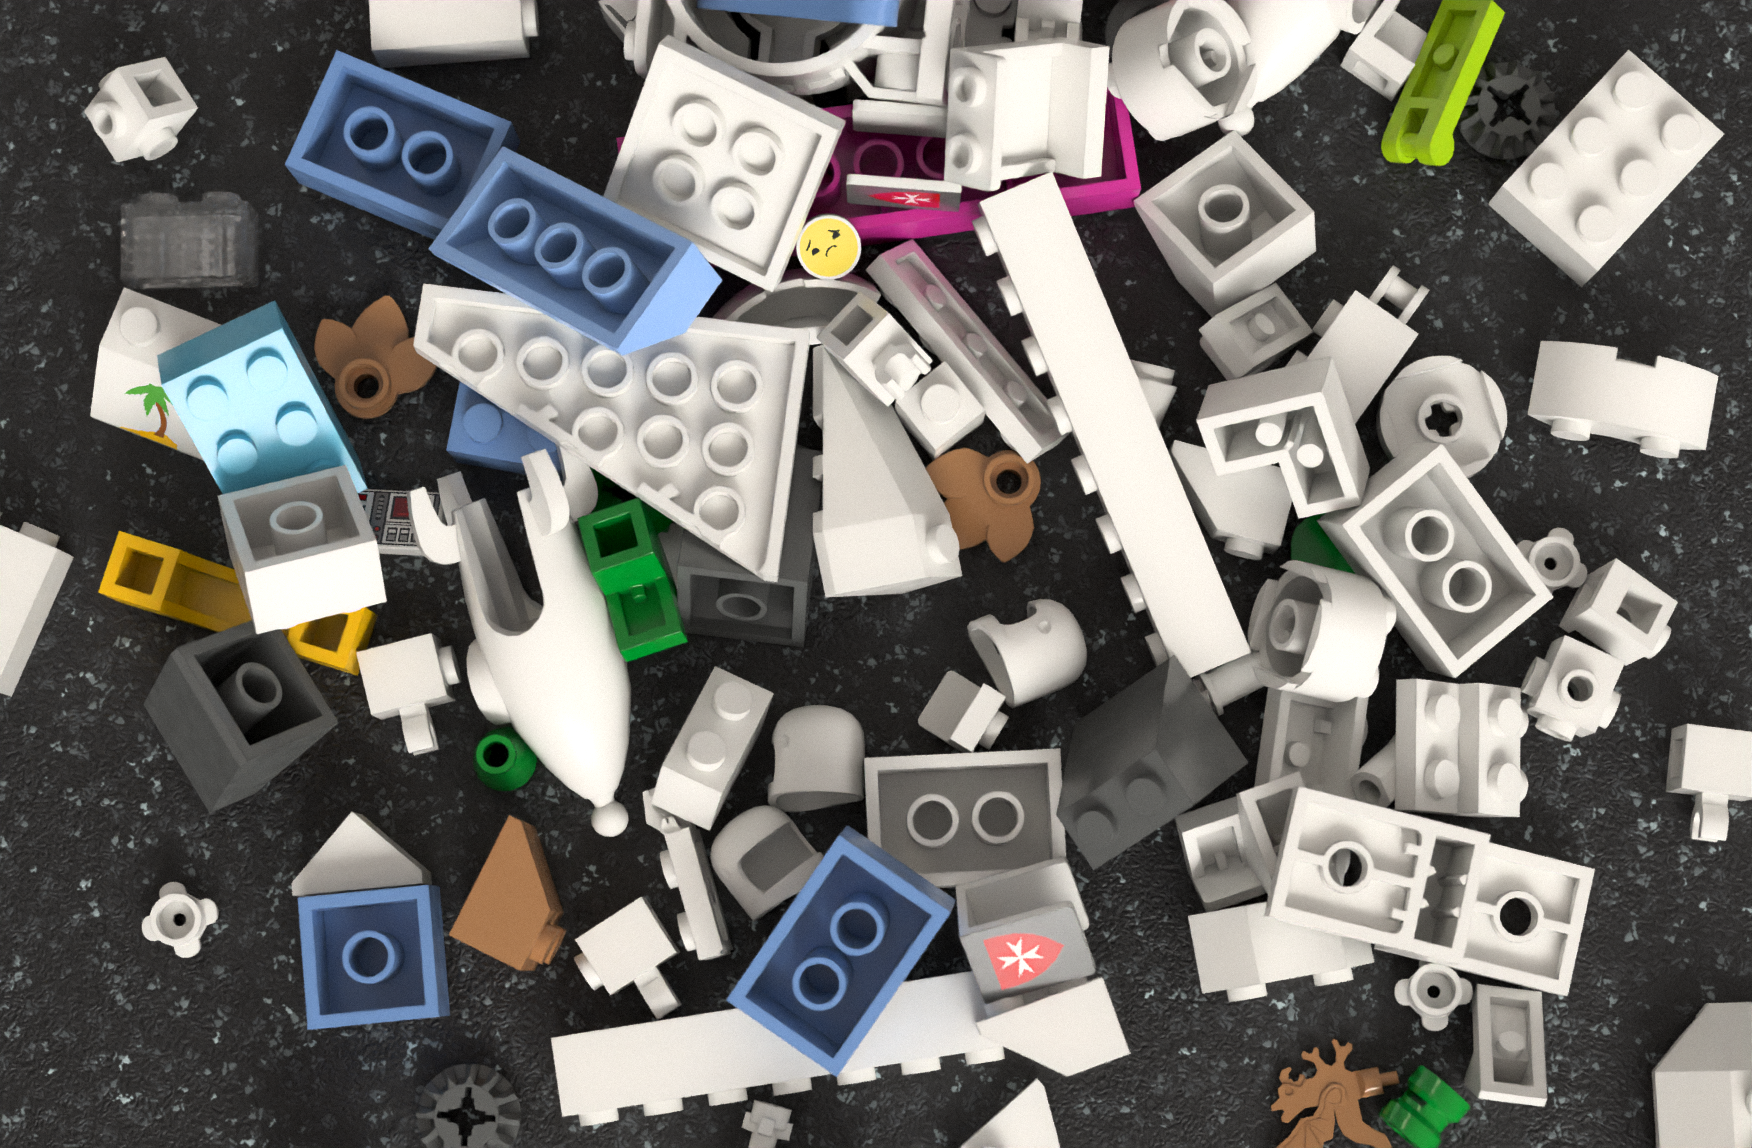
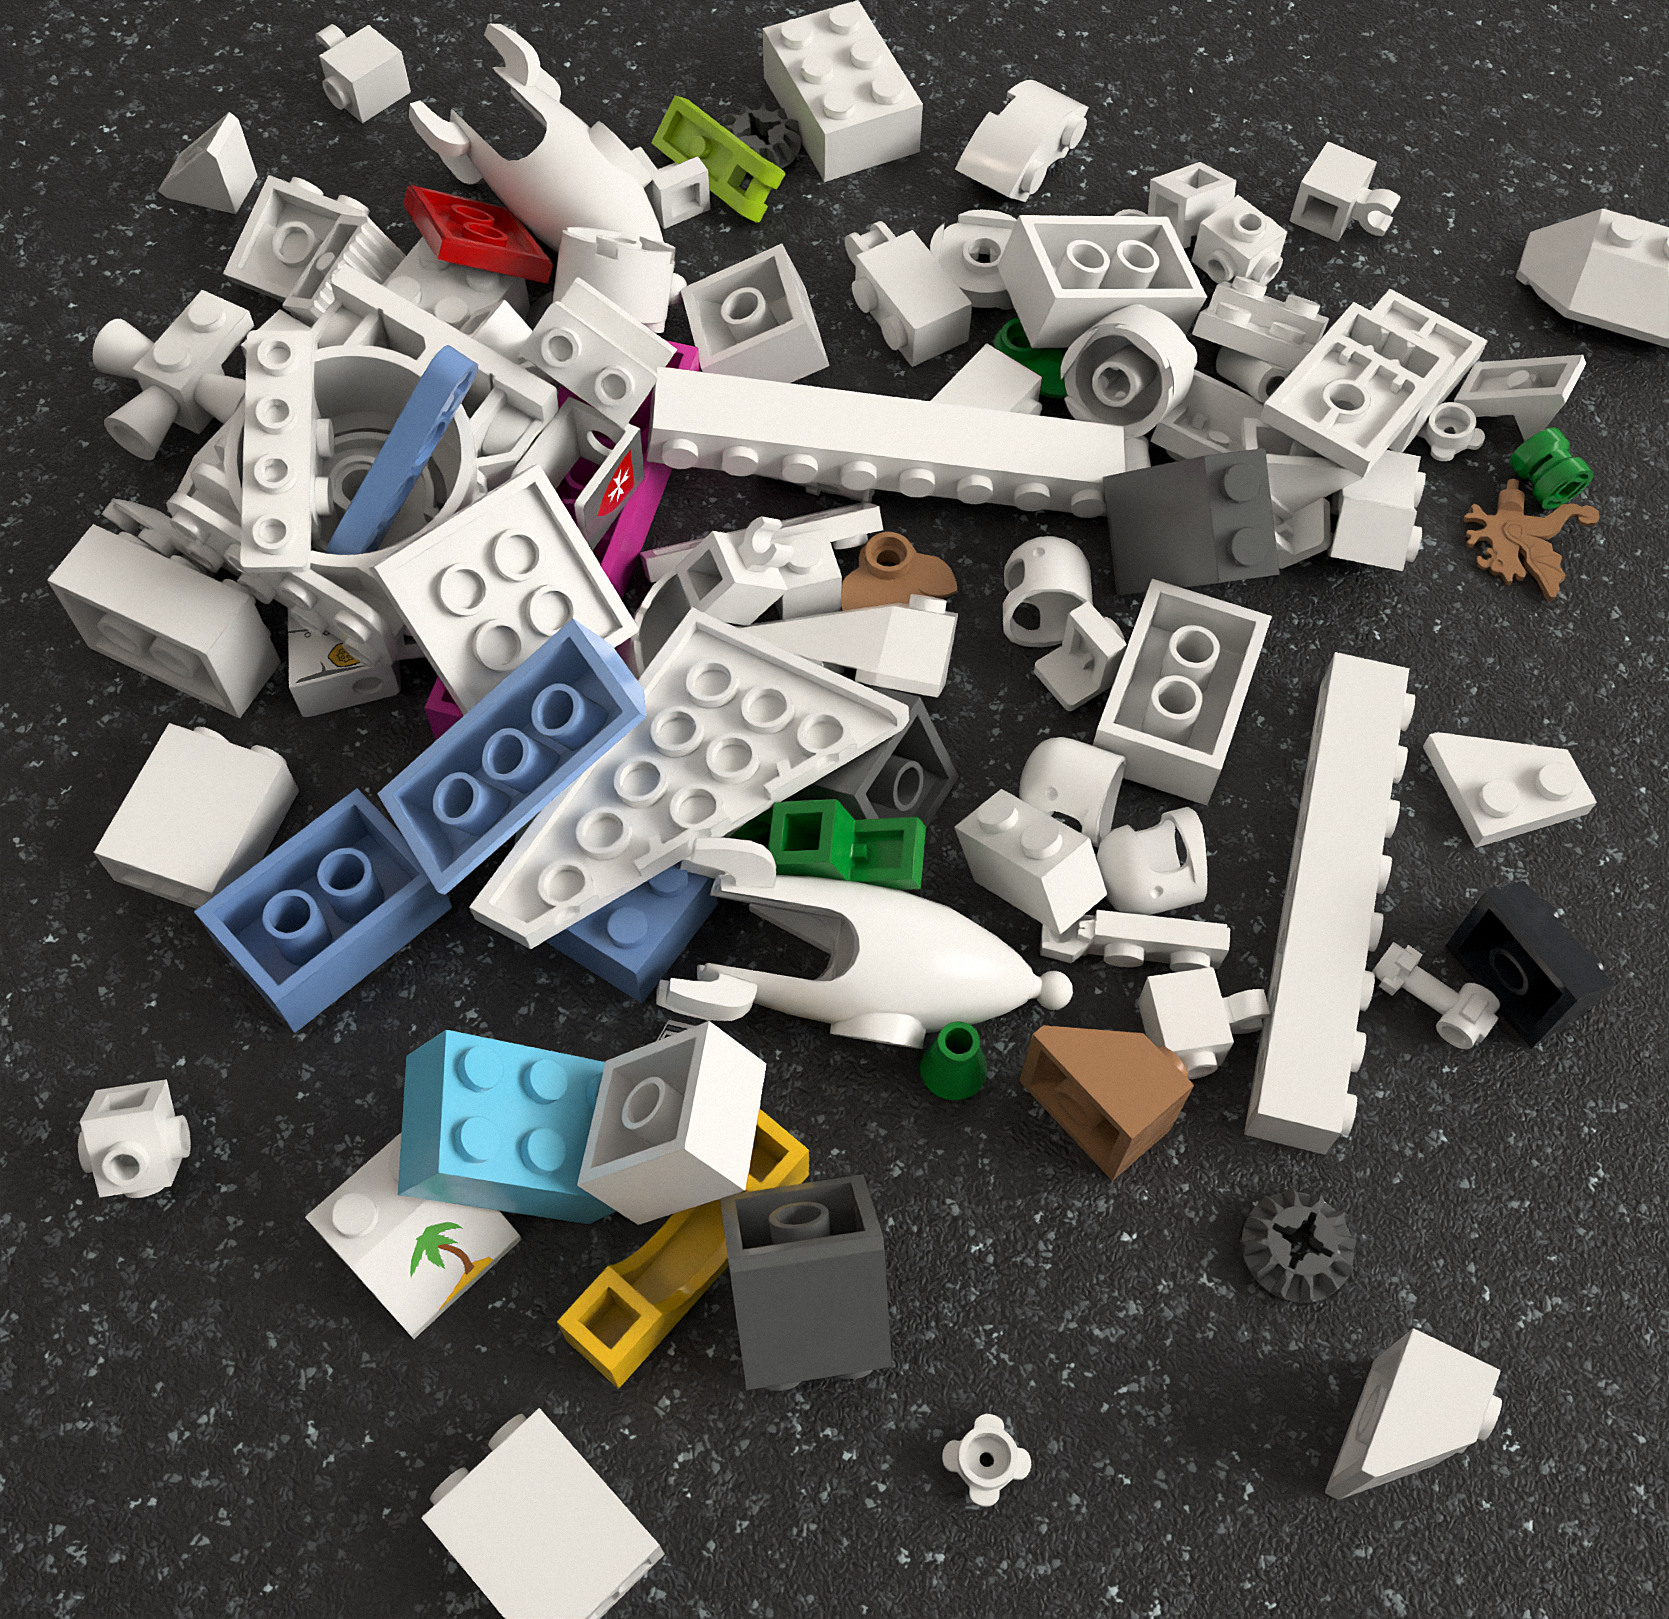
camera: 70 degrees left, 20 degrees down
(189, 242) = (293, 1152): clear brick -> none
(359, 860) = (1000, 1238): white slope -> none
(373, 956) = (1112, 1257): medium blue brick -> none
(376, 349) = (516, 1016): medium nougat plate -> none
(408, 680) = (840, 1120): white brick -> none
(828, 246) = (628, 572): light yellow tile -> none
(841, 950) = (1279, 793): medium blue brick -> none
(1024, 929) = (1310, 657): piece -> none
(1062, 1030) = (1406, 664): white slope -> none
(1253, 333) = (856, 354): white slope -> none
(1293, 420) = (951, 309): white brick -> none

